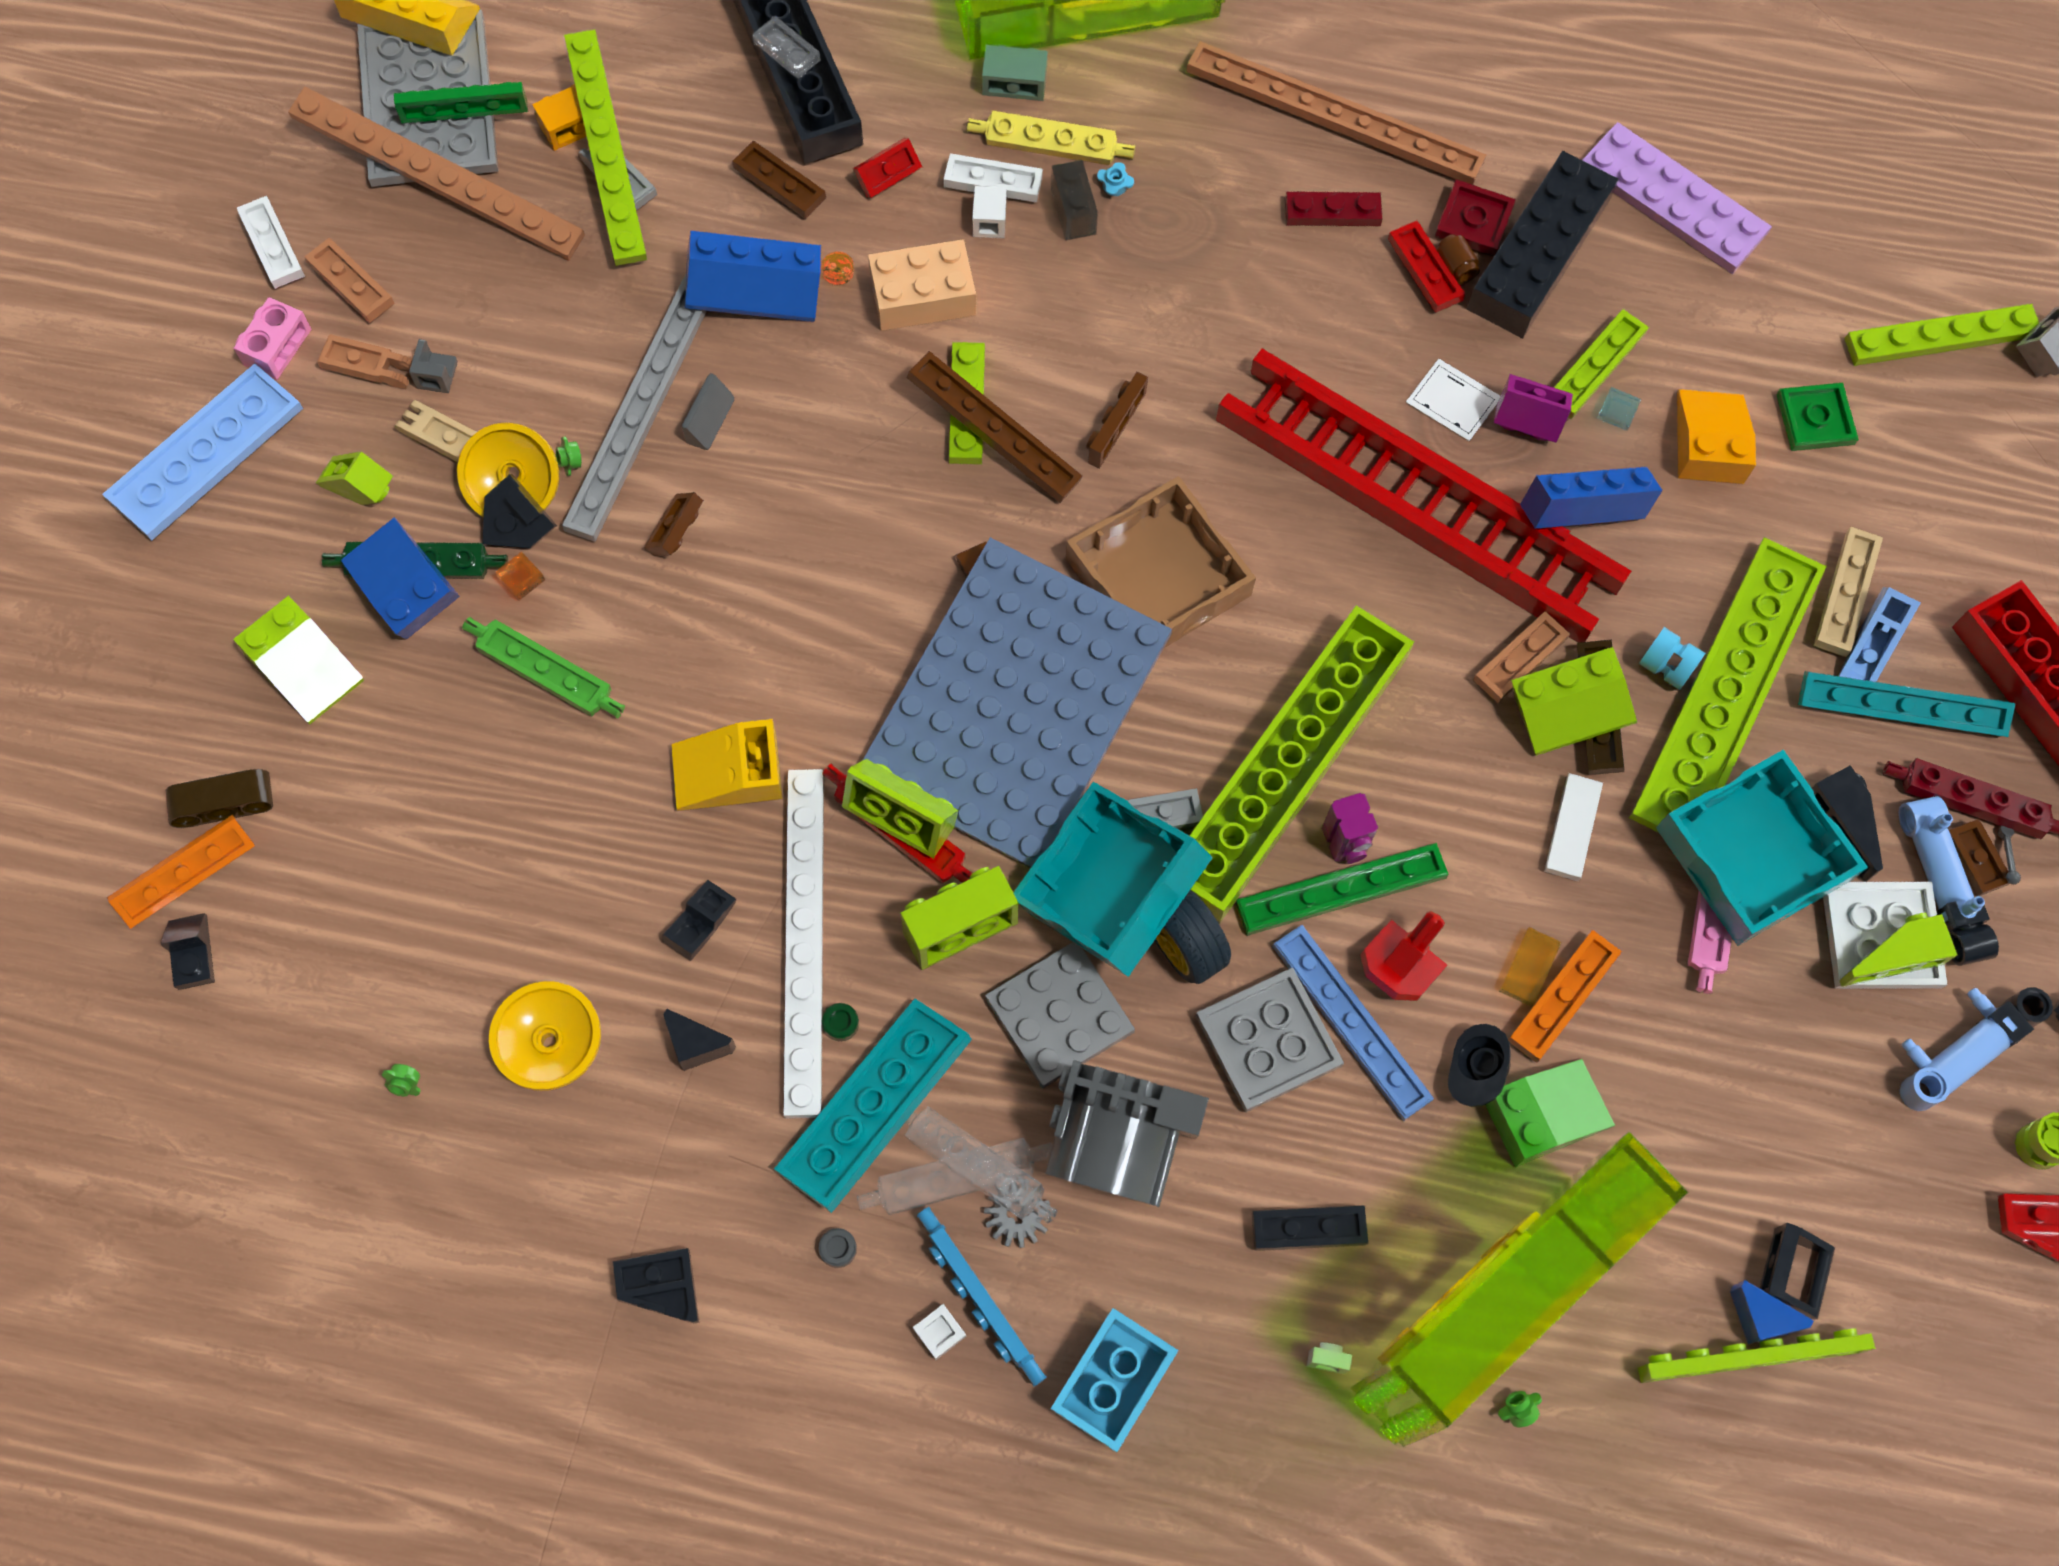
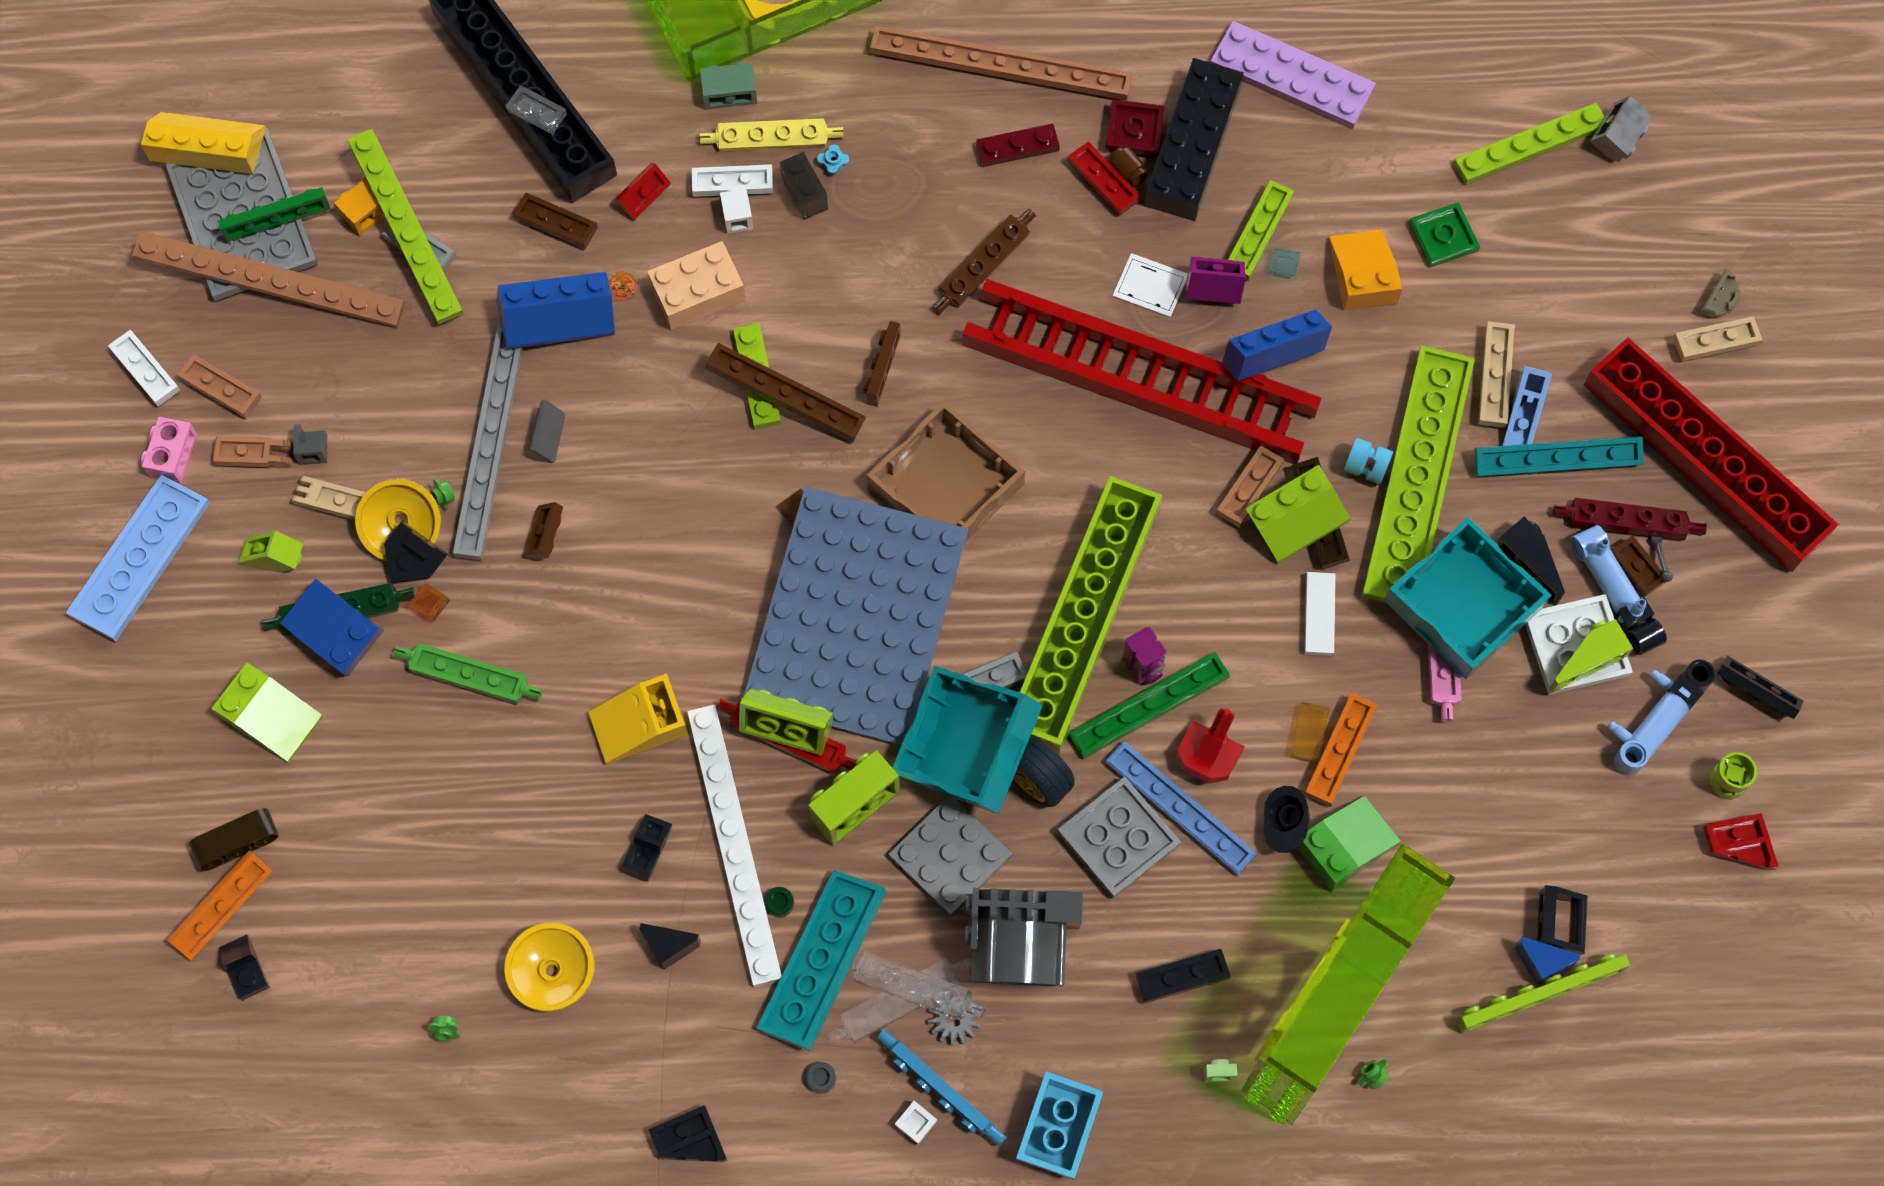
camera: 10 degrees left, 0 degrees up
(1263, 330) = (984, 261): none -> reddish brown plate

